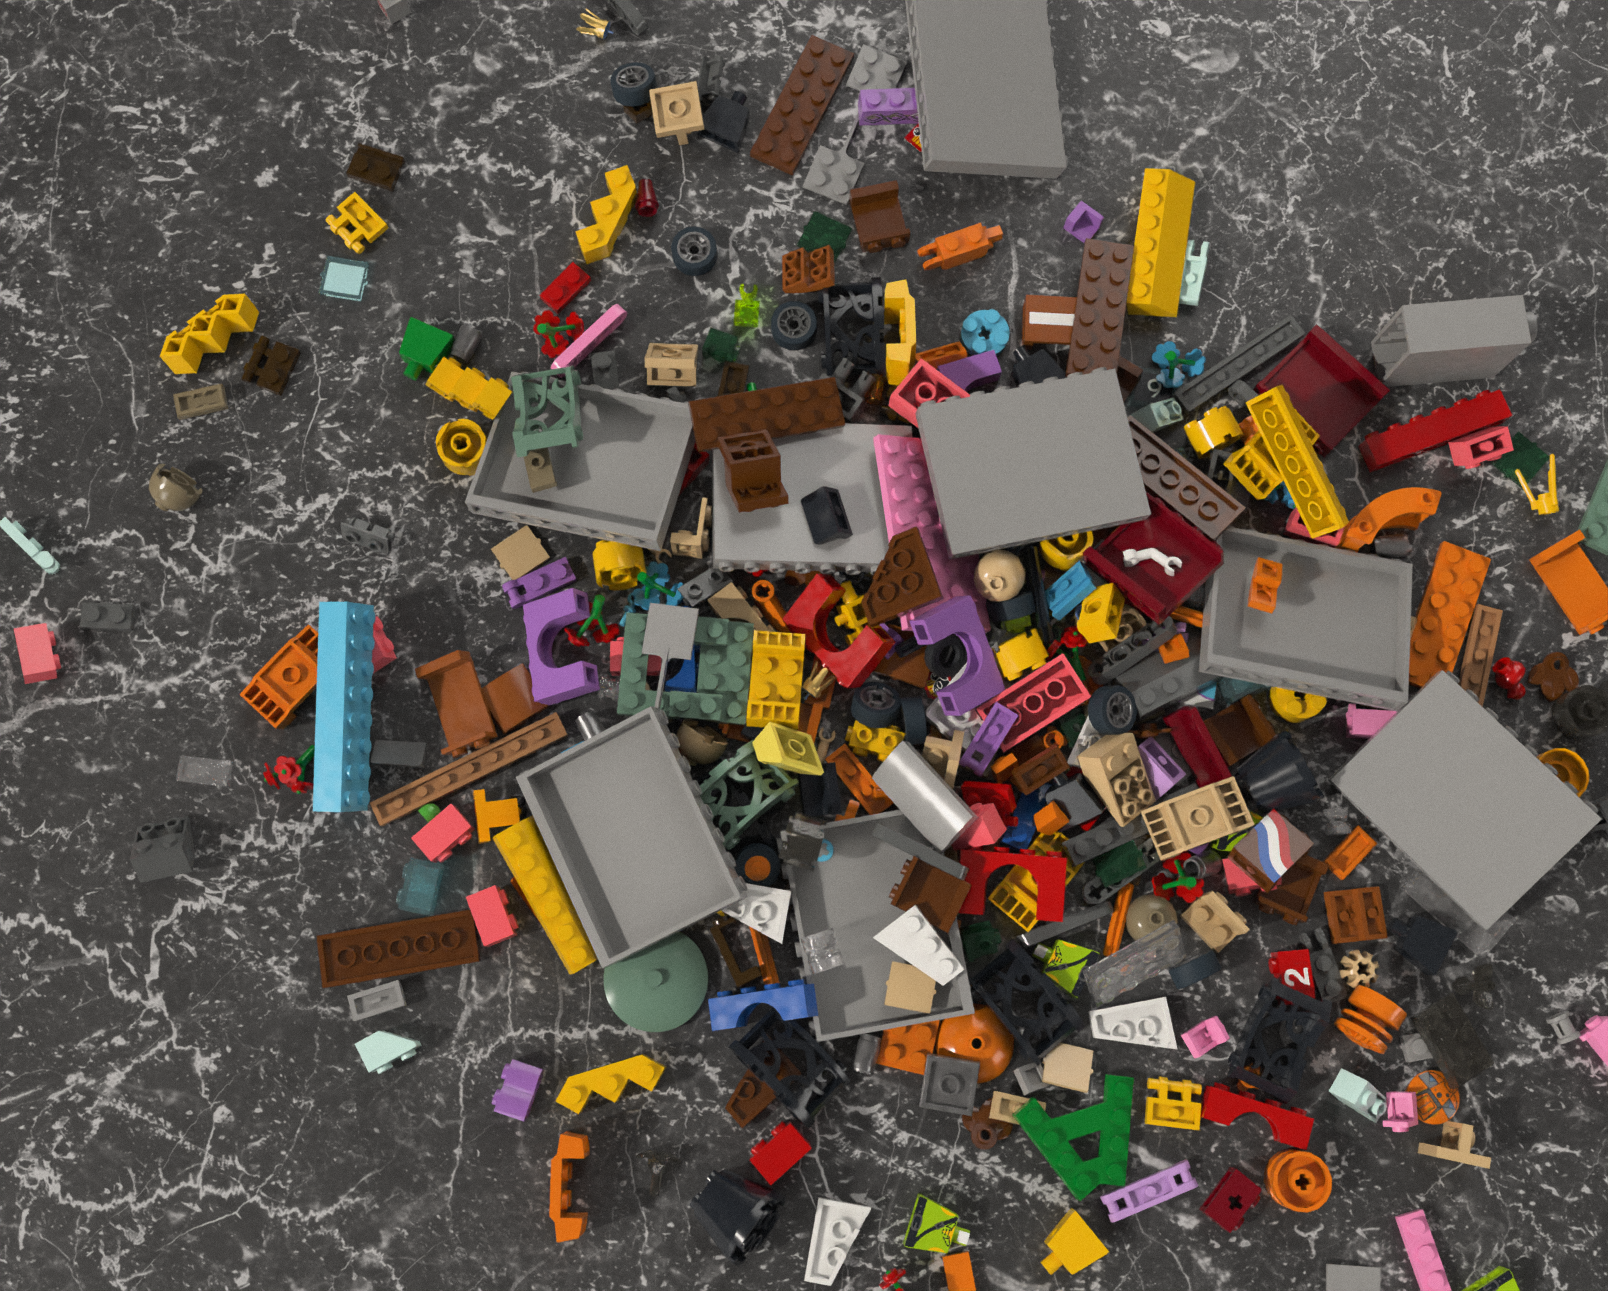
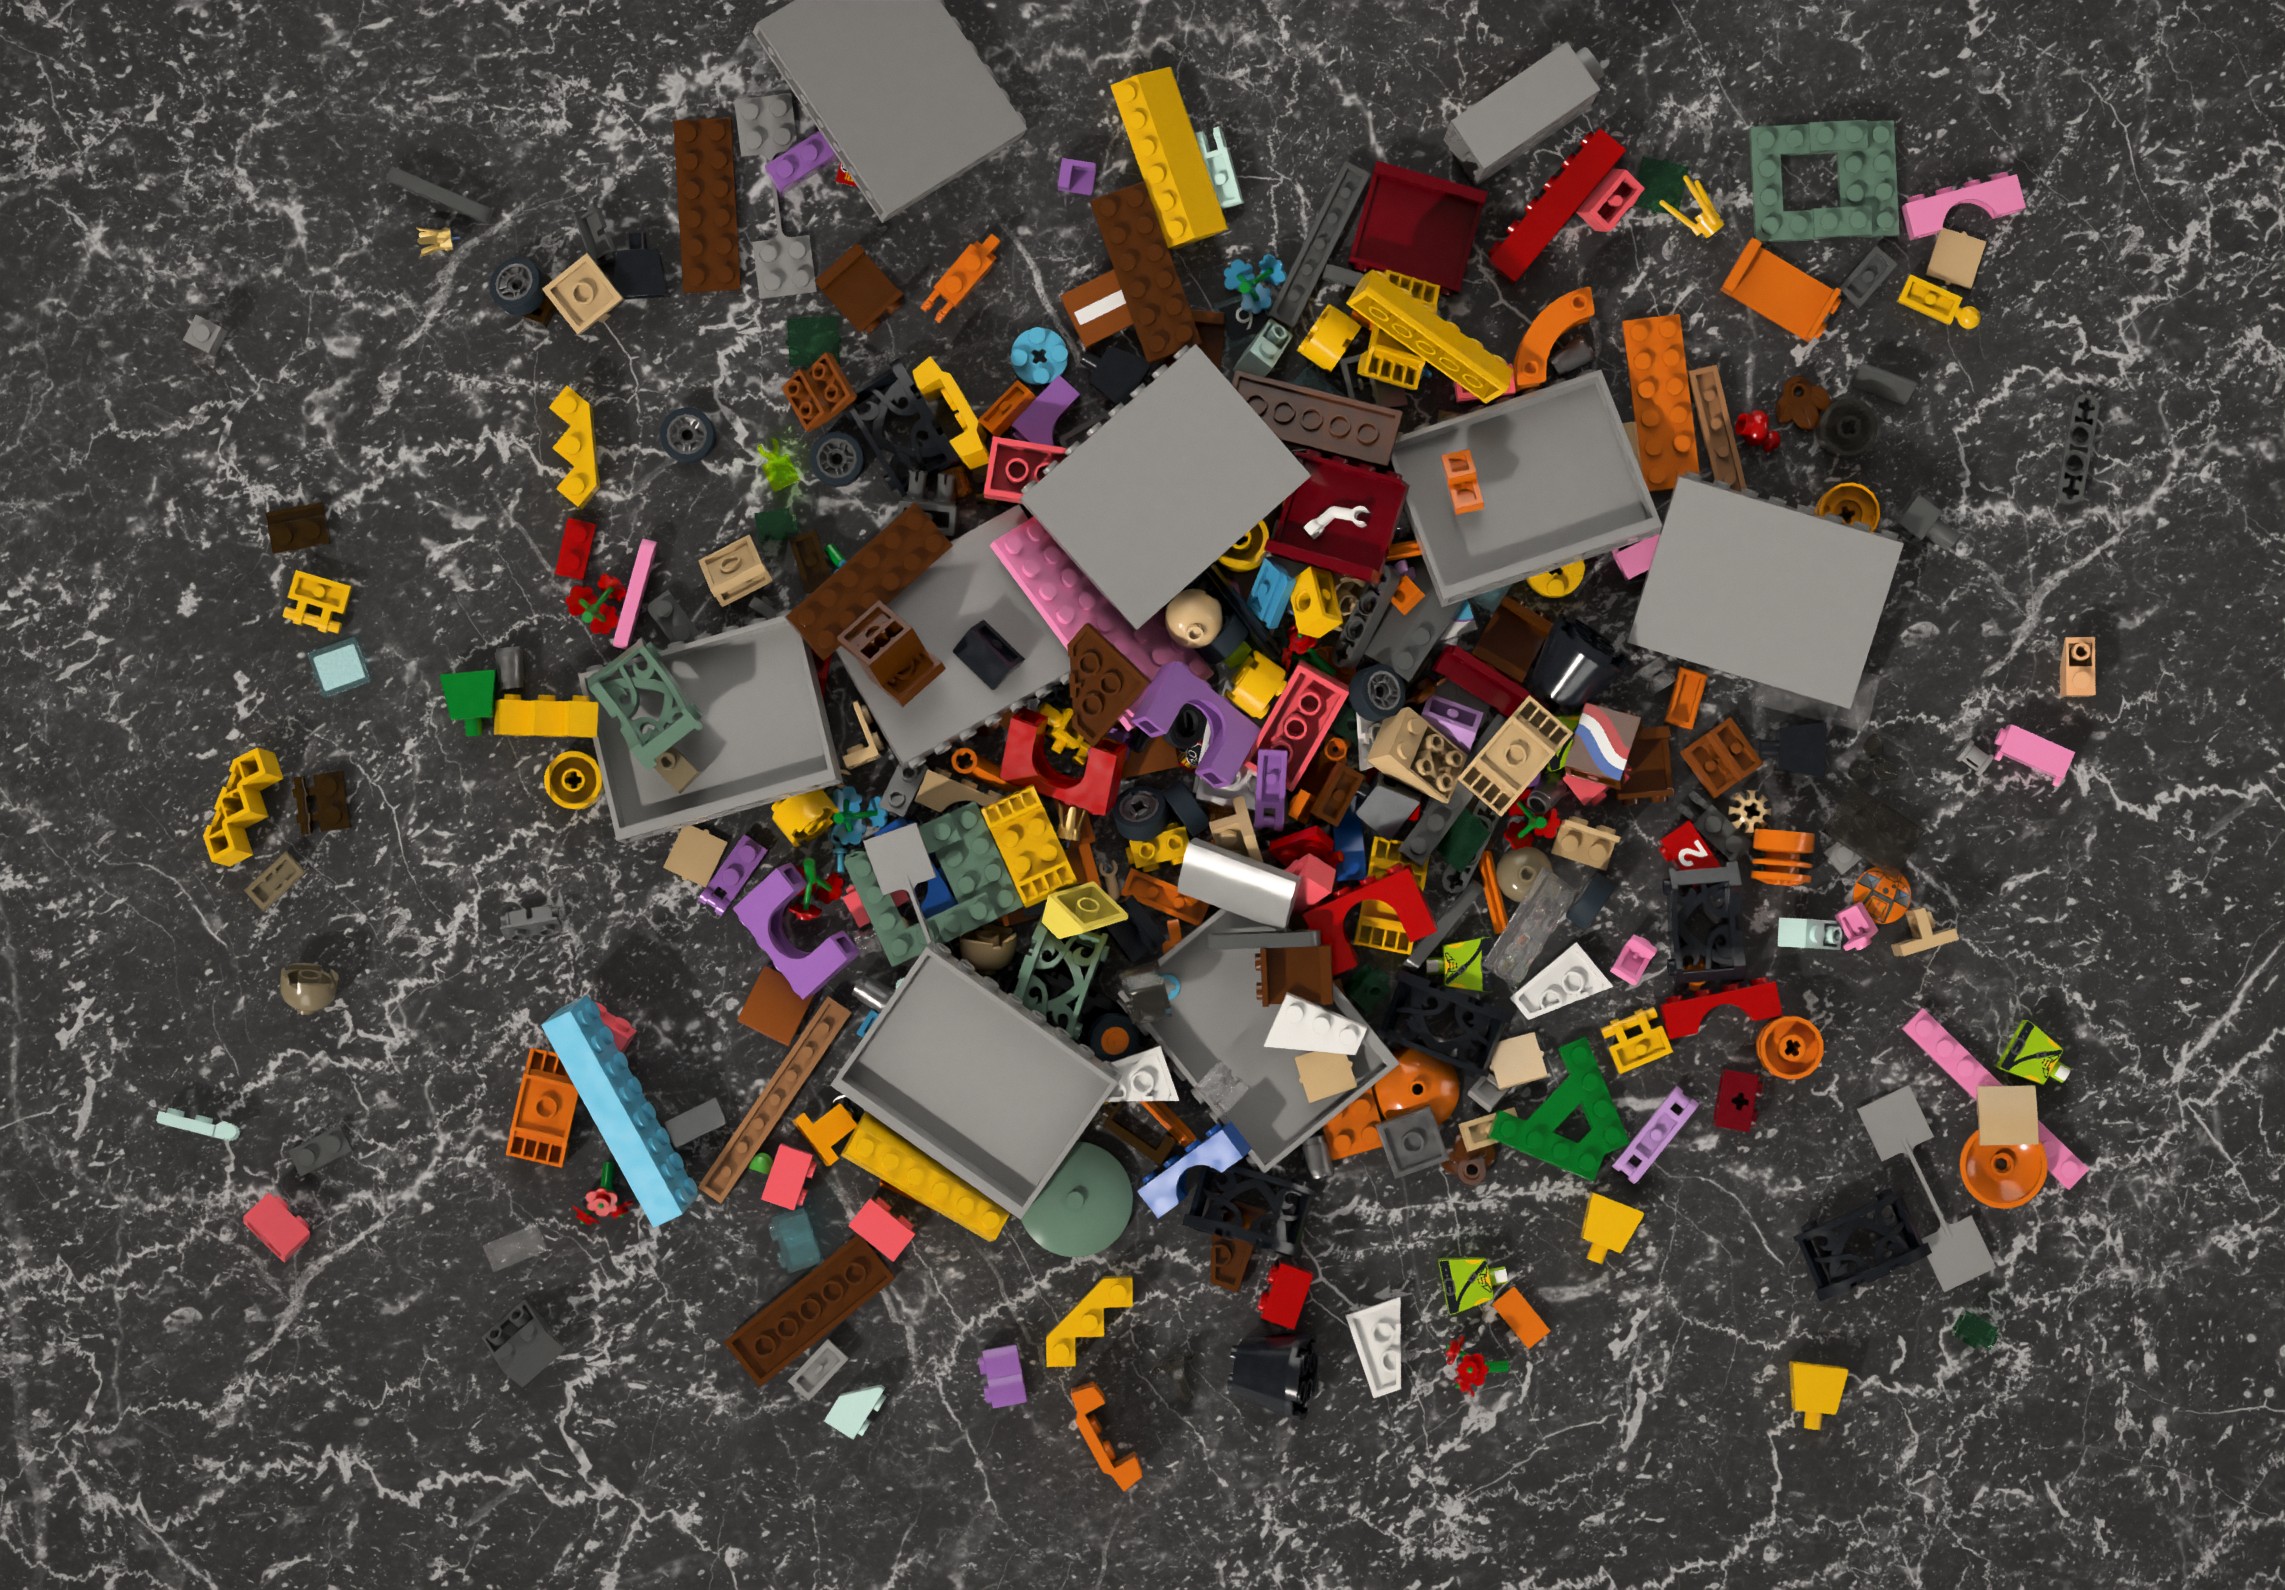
camera: 30 degrees left, 10 degrees up
(459, 702) = (727, 1041): dark orange panel -> none
(646, 198) = (604, 405): dark red cone -> none
(1050, 819) = (1373, 834): orange slope -> none

